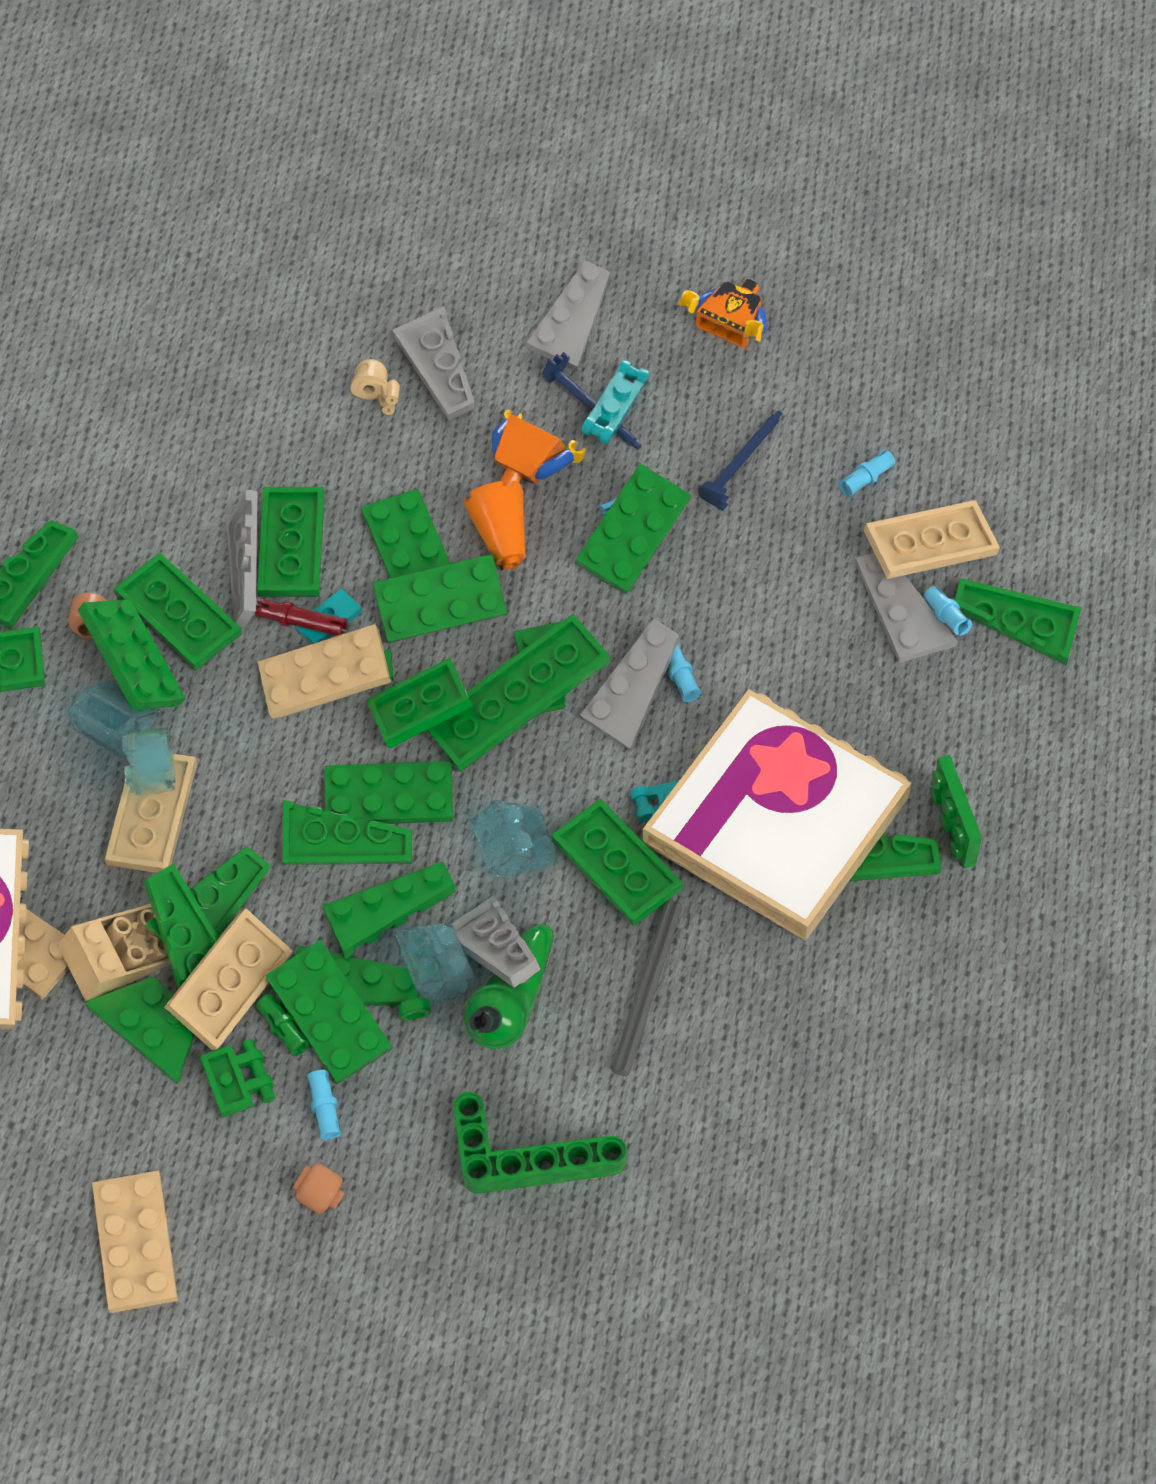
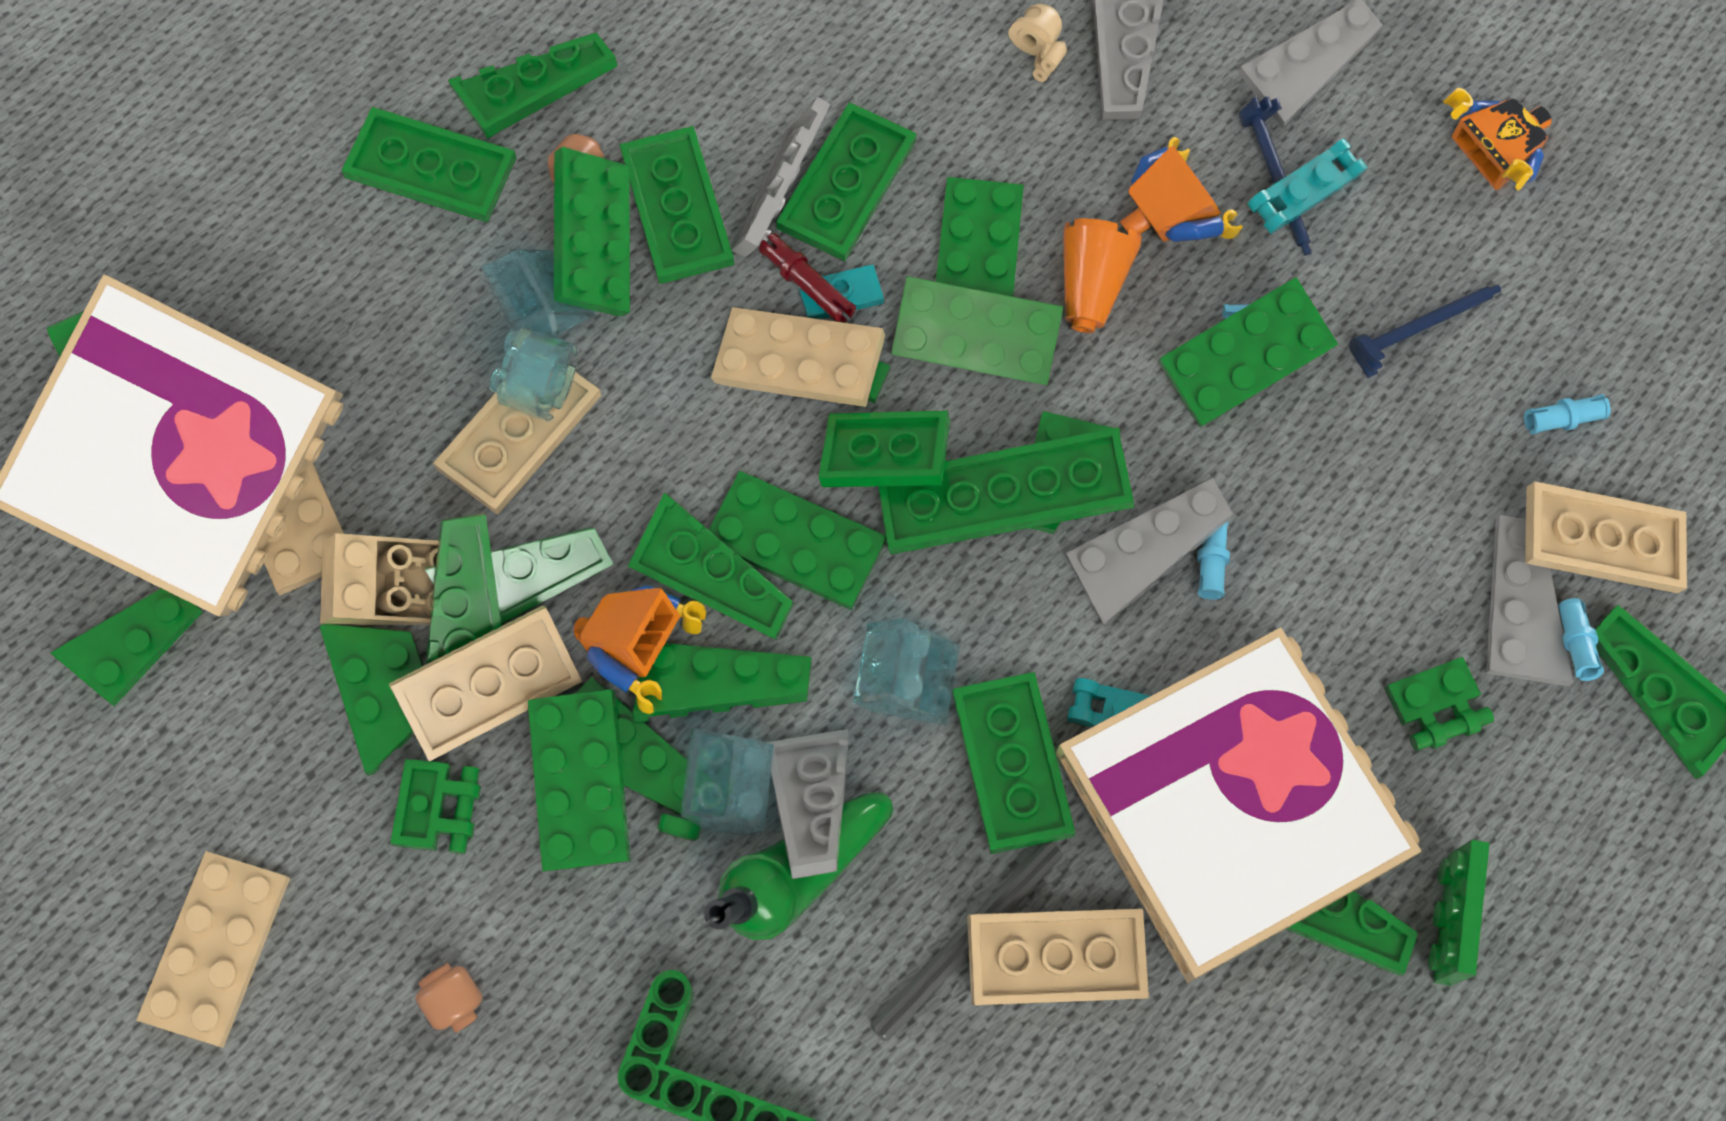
camera: 25 degrees right, 10 degrees up
(282, 1025) = (520, 767): green pin -> none
(312, 902) = (629, 634): none -> orange torso
(324, 1104) = (513, 892): medium azure pin -> none
(712, 965) = (1057, 956): none -> tan plate
(871, 688) = (1435, 691): none -> green plate

